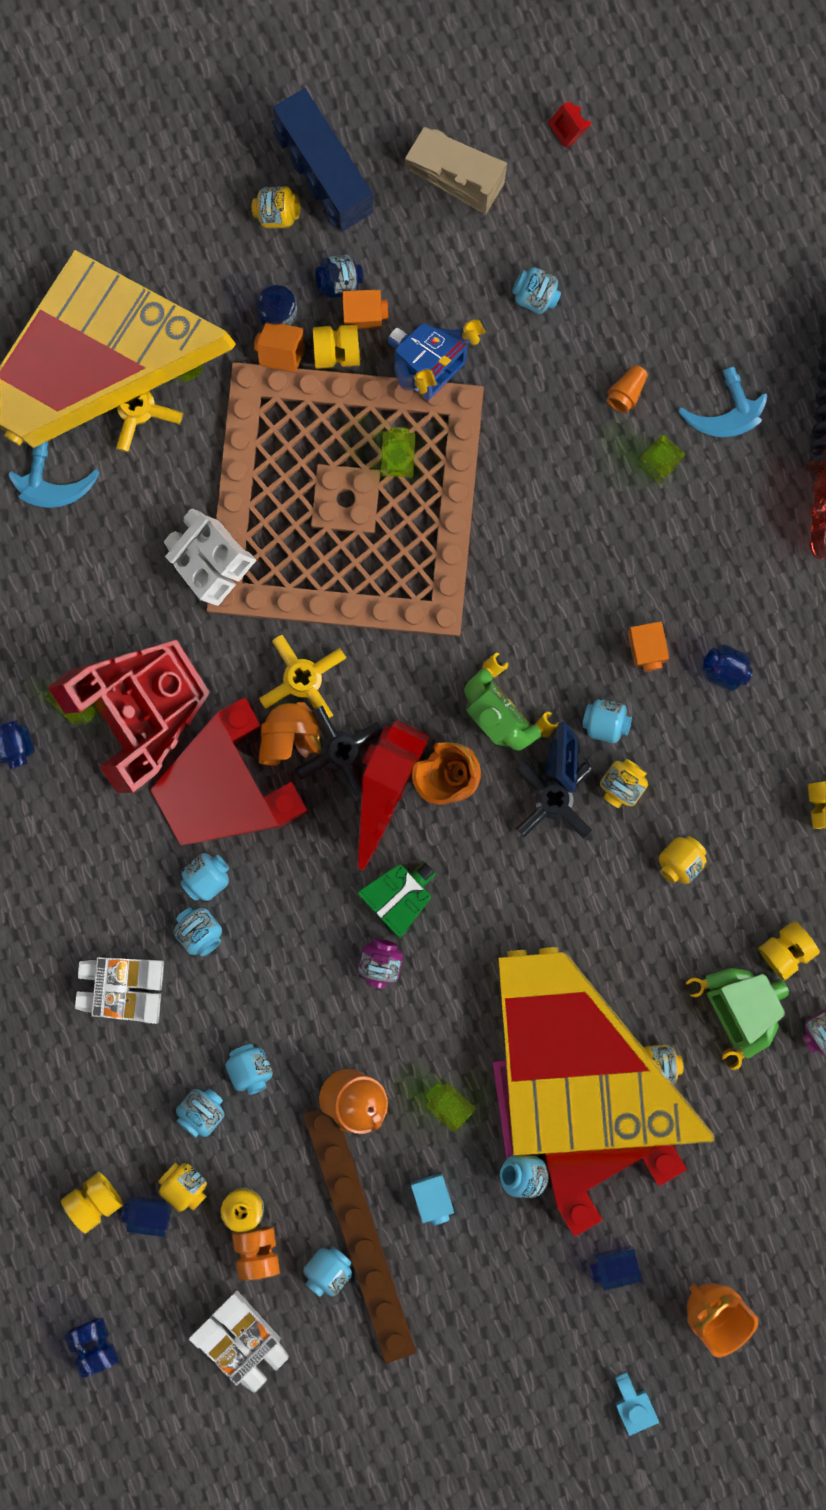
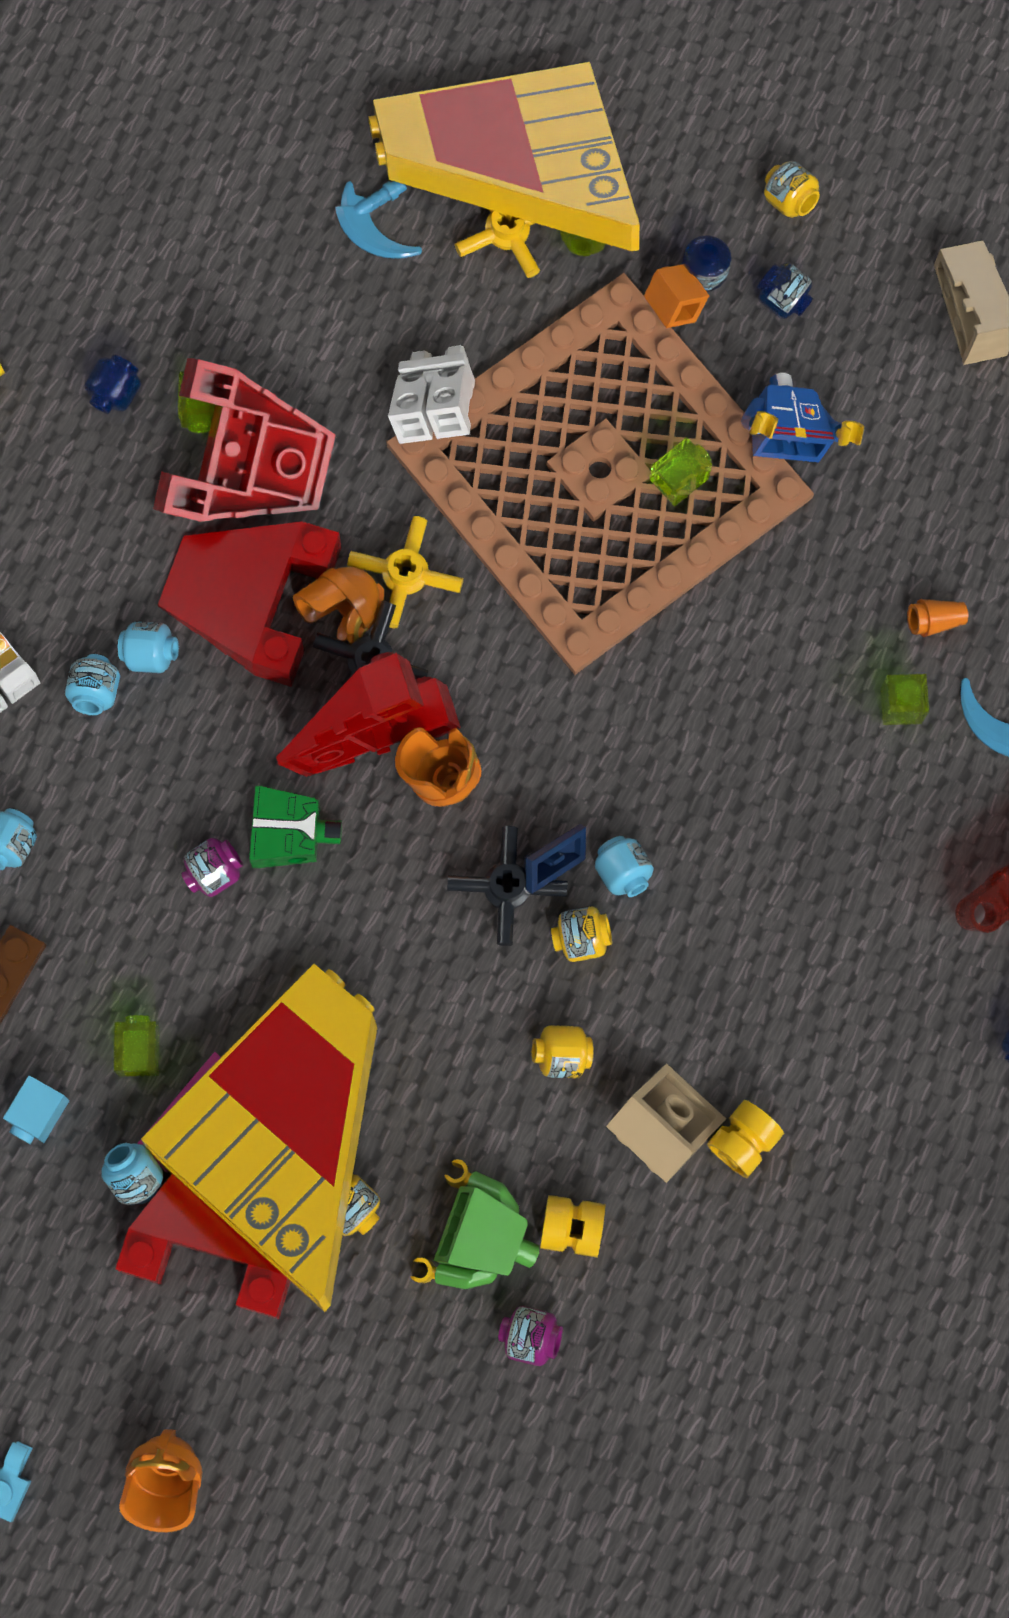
camera: 45 degrees right, 10 degrees down
(322, 160) = (866, 185): dark blue brick -> none
(326, 348) = (715, 329): yellow wheel -> none
(347, 1098) = (60, 942): orange helmet -> none
(364, 309) = (777, 335): orange brick -> none
(497, 714) = (535, 765): bright green torso -> none
(536, 290) = (941, 461): head -> none
(616, 1268) = (122, 1341): clear blue brick -> none
(648, 646) = (727, 841): orange brick -> none
(727, 667) = (777, 929): clear blue head -> none
(779, 840) = (665, 1122): none -> tan slope

